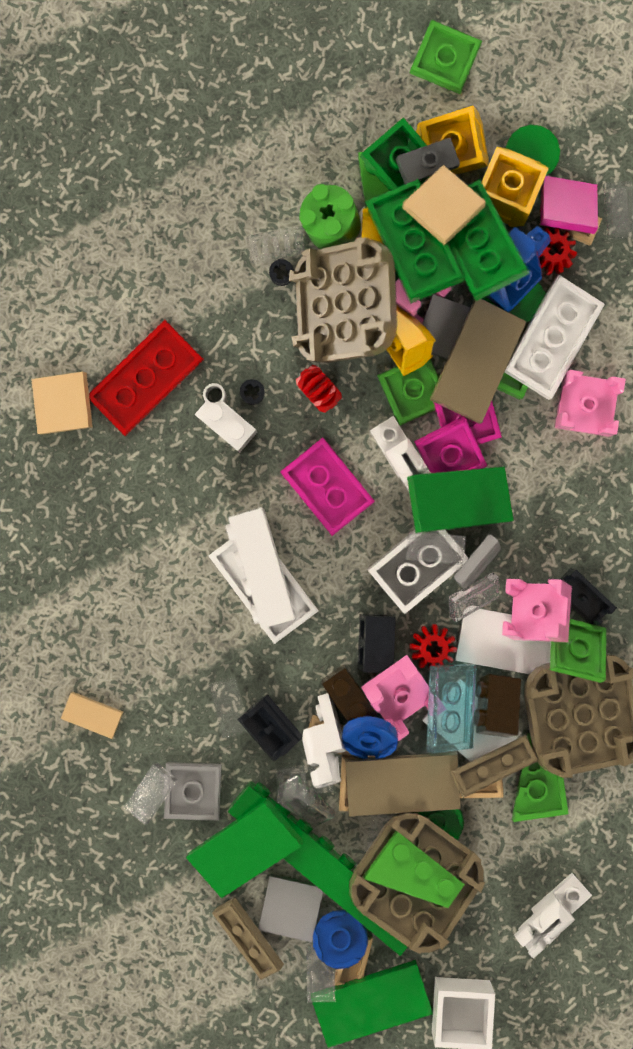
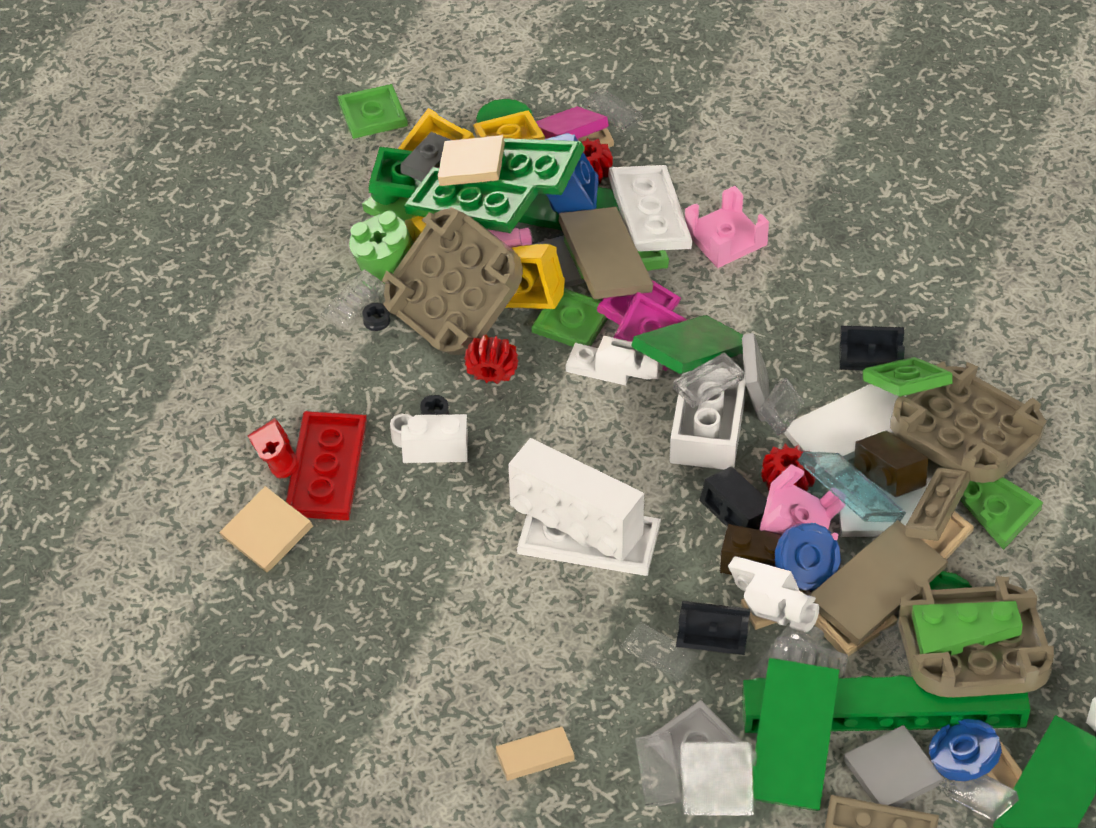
camera: 40 degrees left, 40 degrees down
(115, 336) = (275, 449): none -> red piece
(174, 837) = (717, 778): none -> clear hinge
(327, 486) = (573, 428): dark pink tile -> none
(539, 611) = (845, 371): bright pink panel -> none

